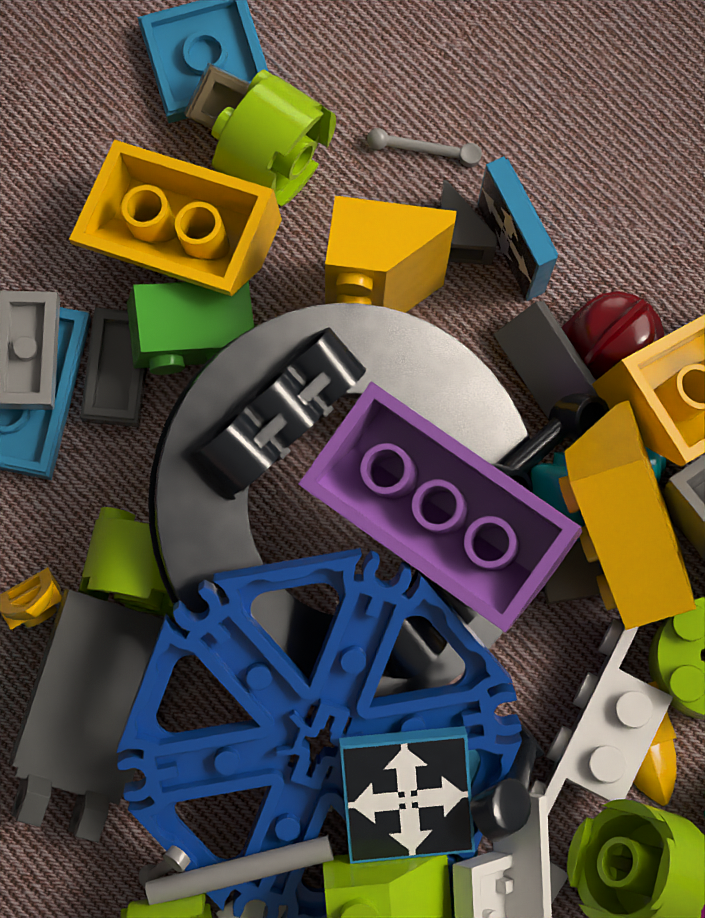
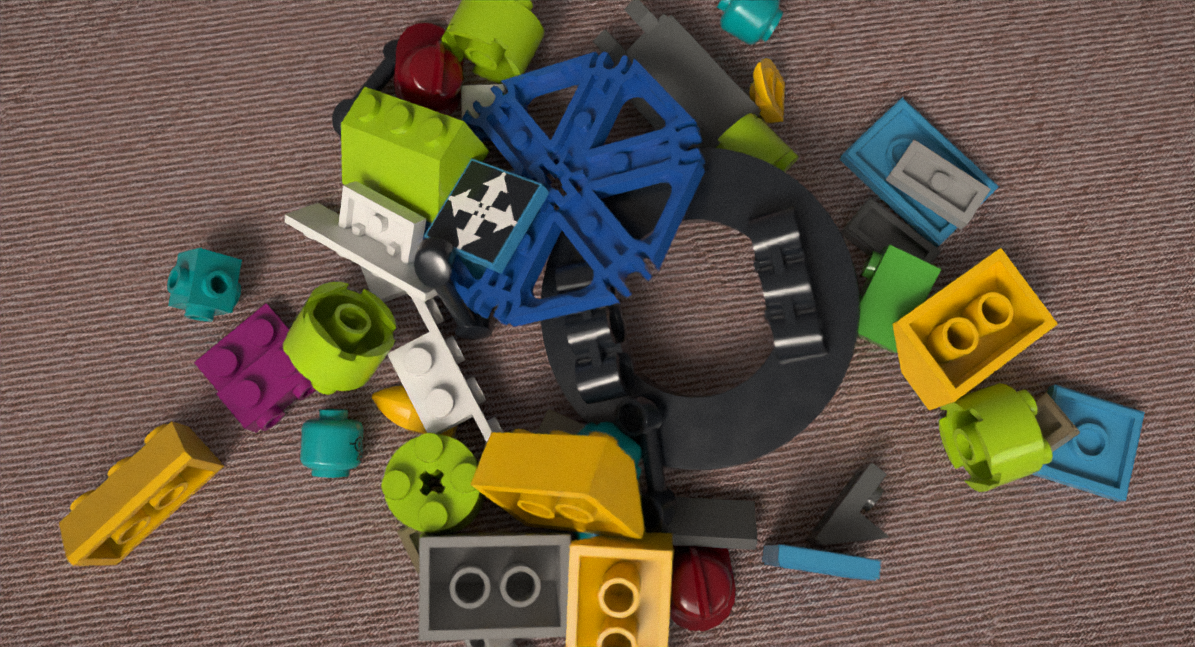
camera: 125 degrees right, 0 degrees up
(173, 859) = (548, 59): light grey hinge -> none
(239, 870) = (514, 97): light grey bar -> none
(386, 252) = (855, 439): yellow slope -> none
(440, 507) = (651, 344): medium lavender slope -> none
(468, 155) = (898, 579): light grey hinge -> none

